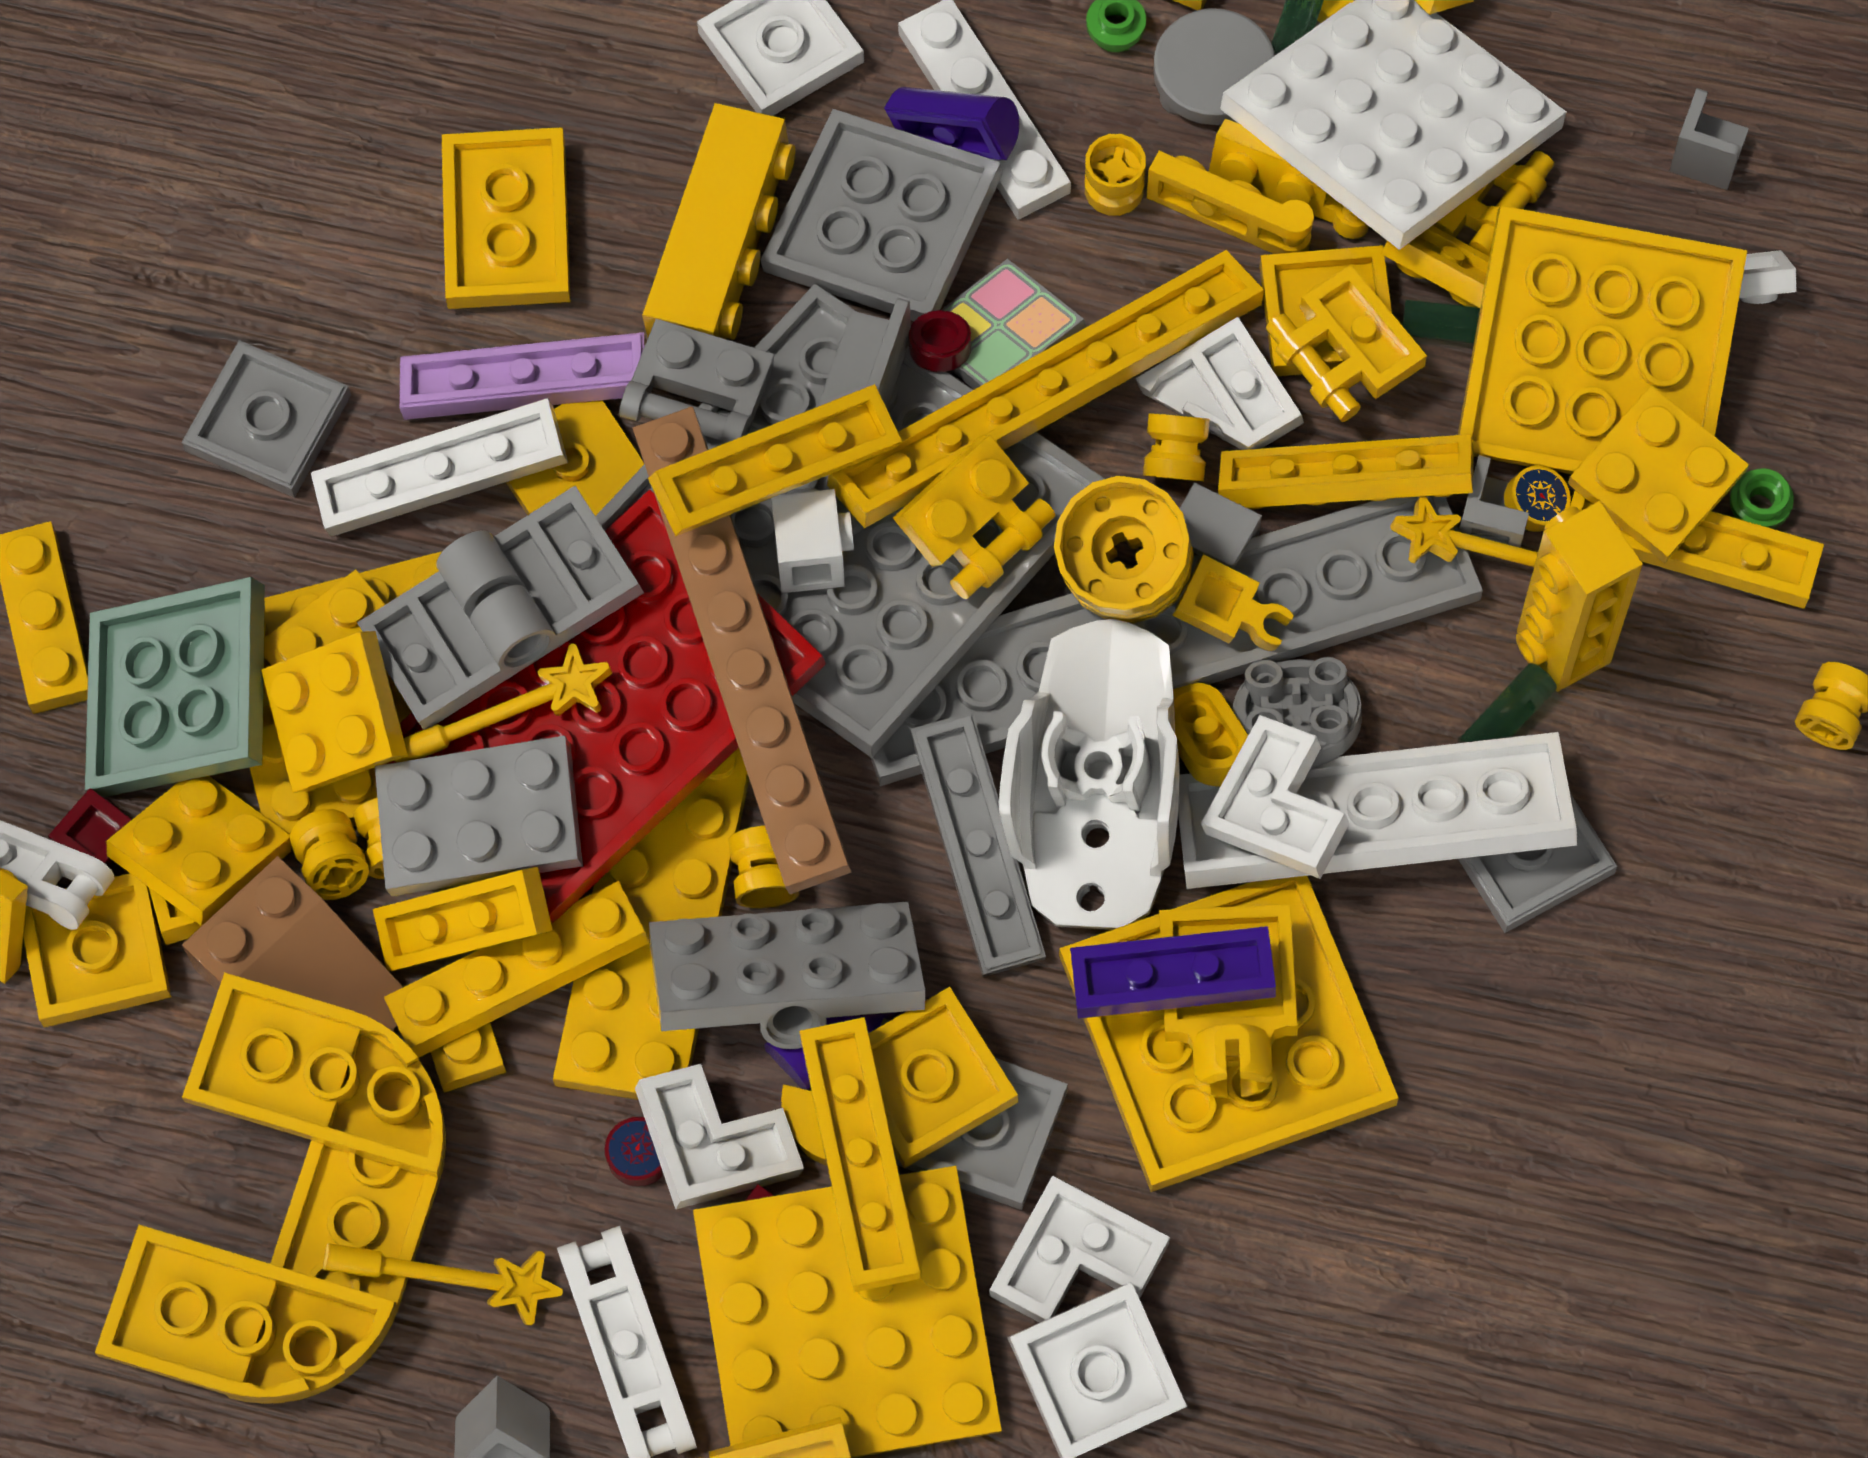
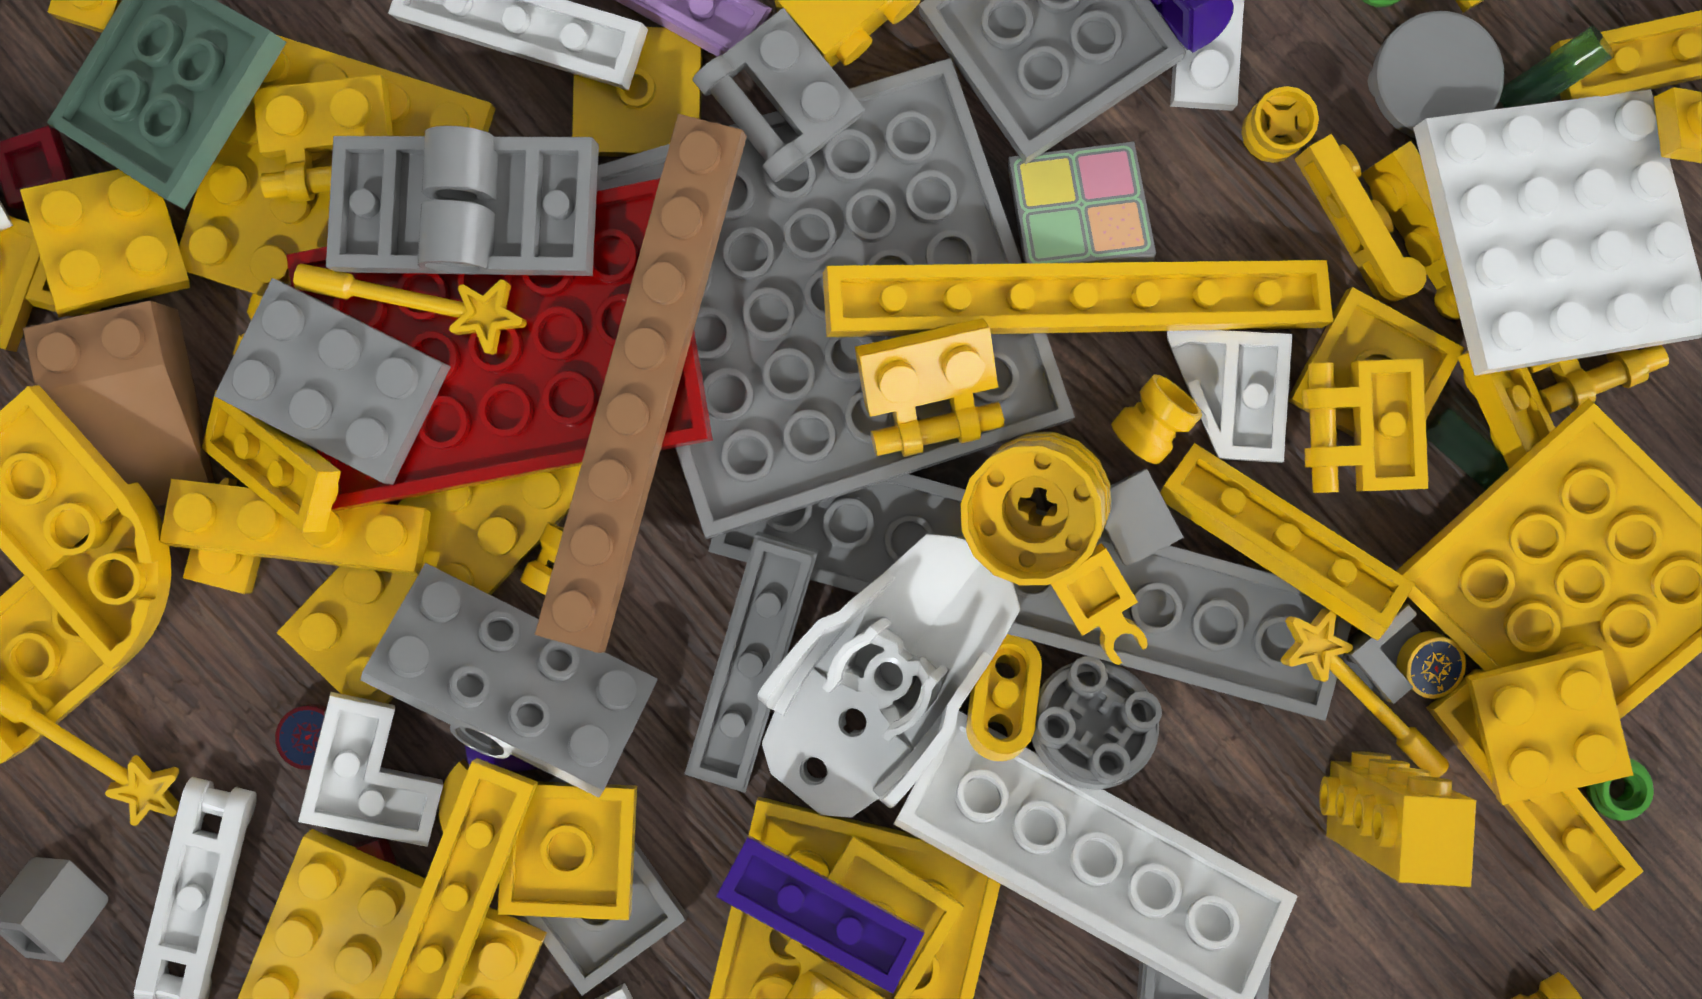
camera: 25 degrees right, 20 degrees up
(334, 712) = (268, 204): yellow plate -> none
(335, 862) = (208, 318): yellow wheel -> none
(774, 460) = (774, 235): yellow plate -> none
(810, 539) = (775, 312): white brick -> none
(869, 354) = (932, 177): light grey panel -> none
(940, 341) = (1019, 188): dark red tile -> none
(1261, 806) = (993, 813): white plate -> none
(1512, 706) = (1271, 834): clear green piece -> none

